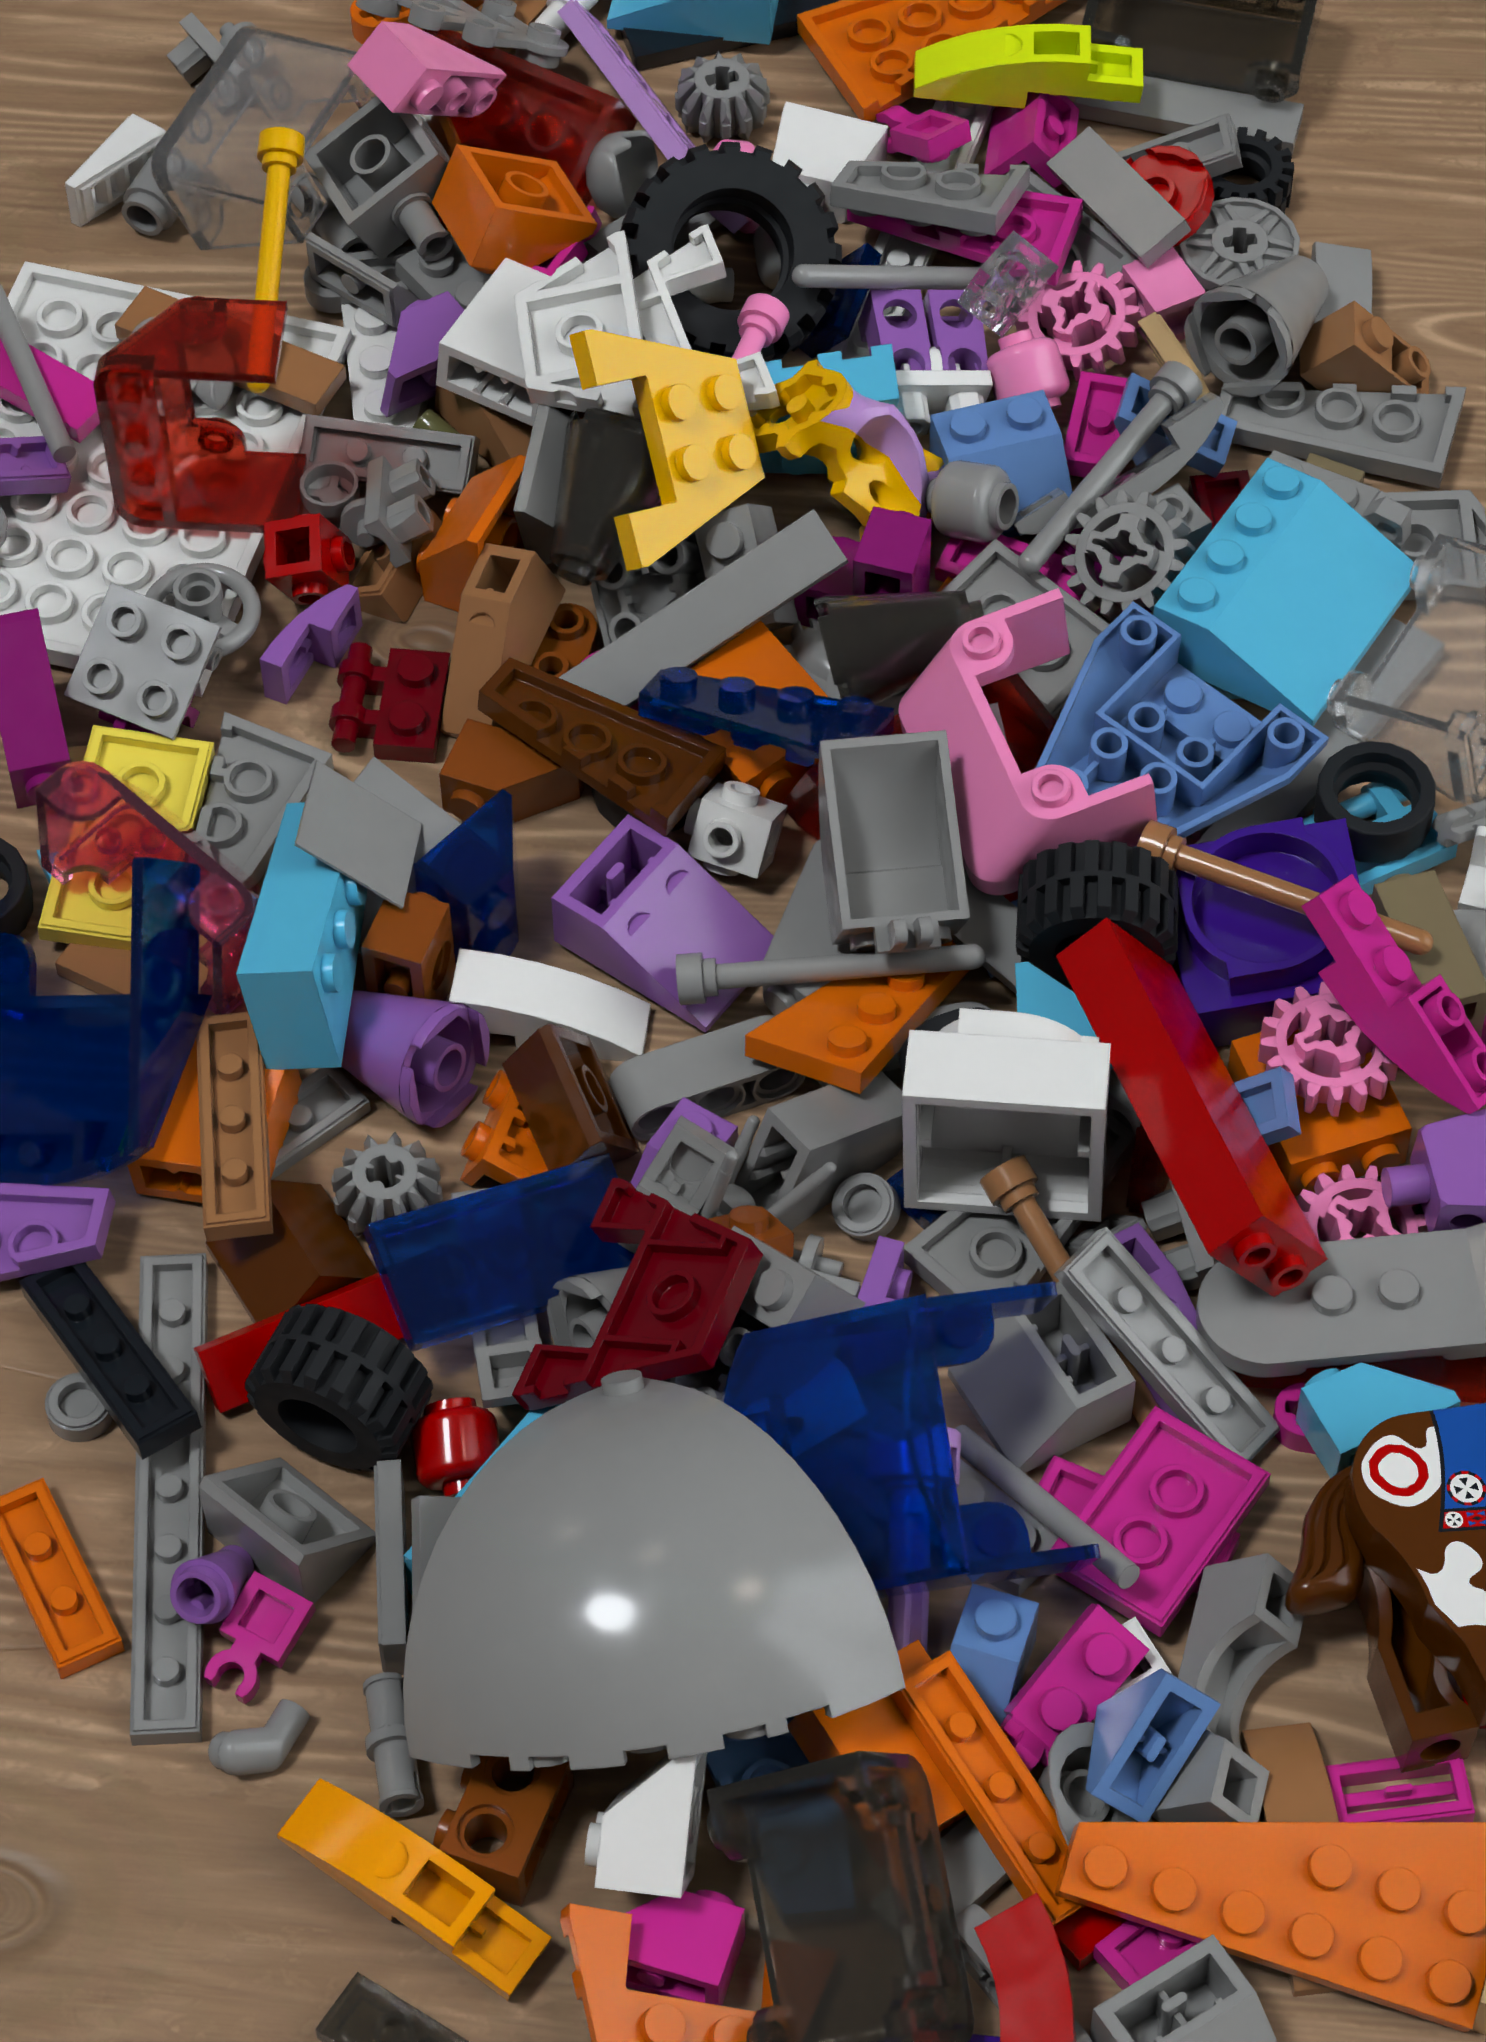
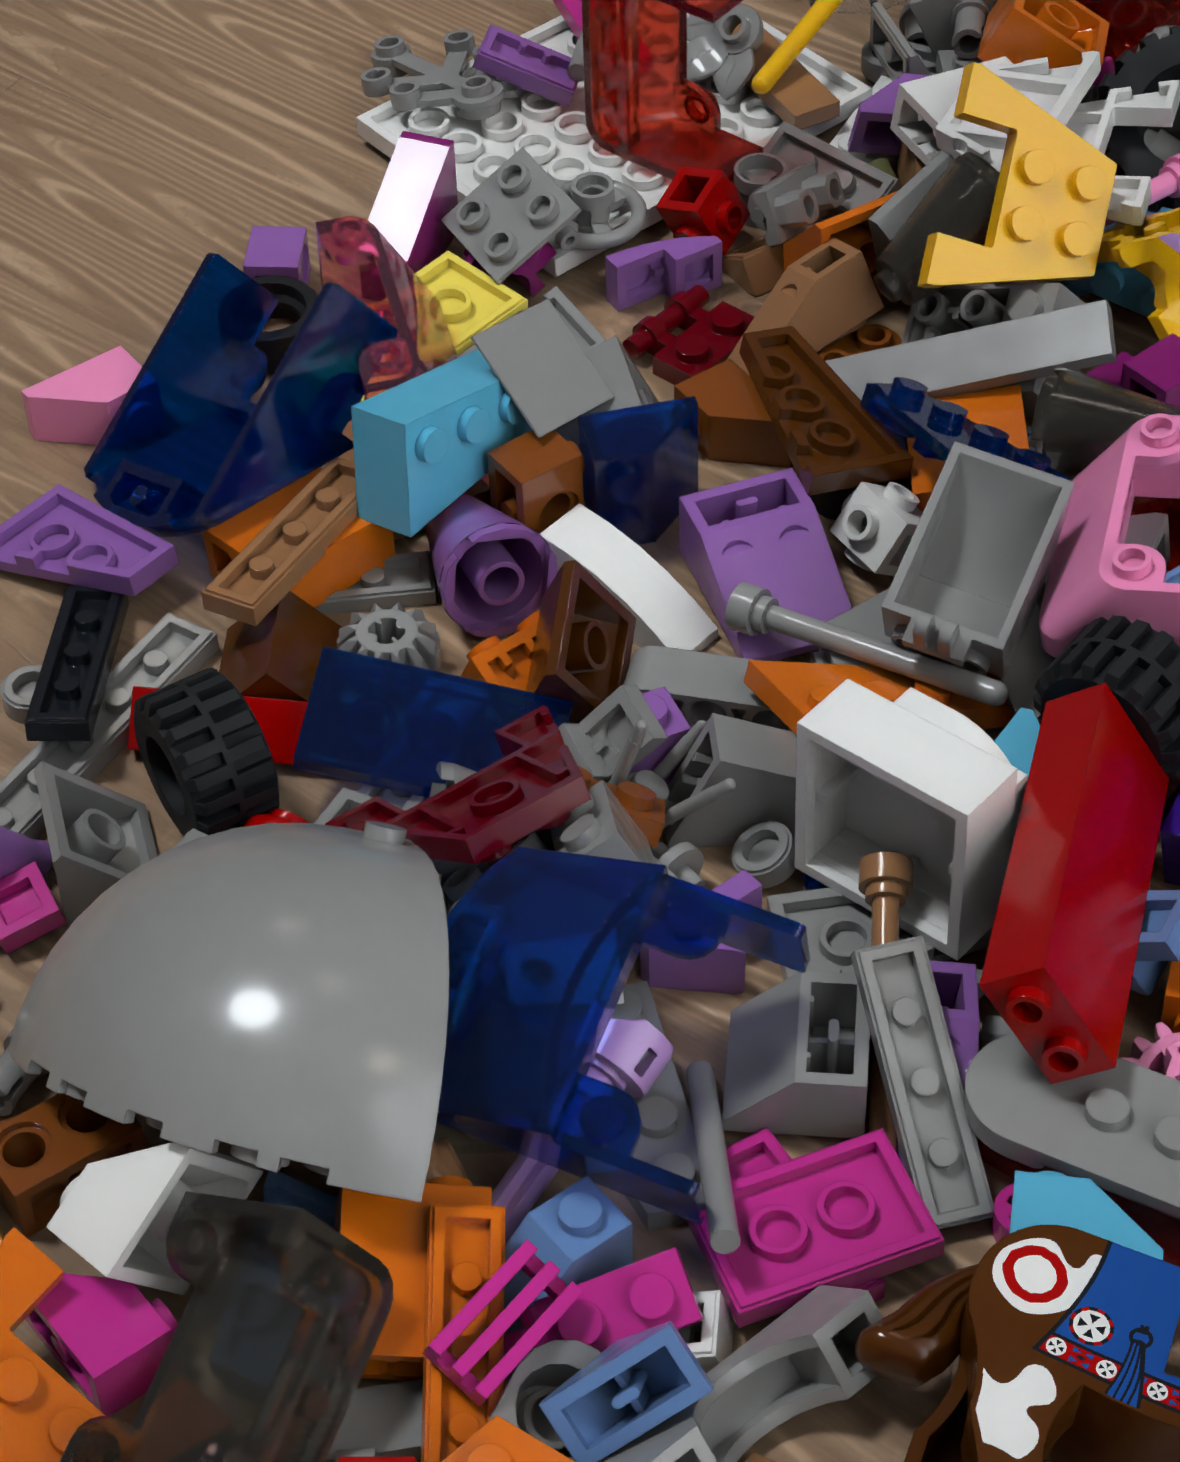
camera: 35 degrees right, 10 degrees down
(1045, 1746) = (543, 1278): none -> dark pink tile

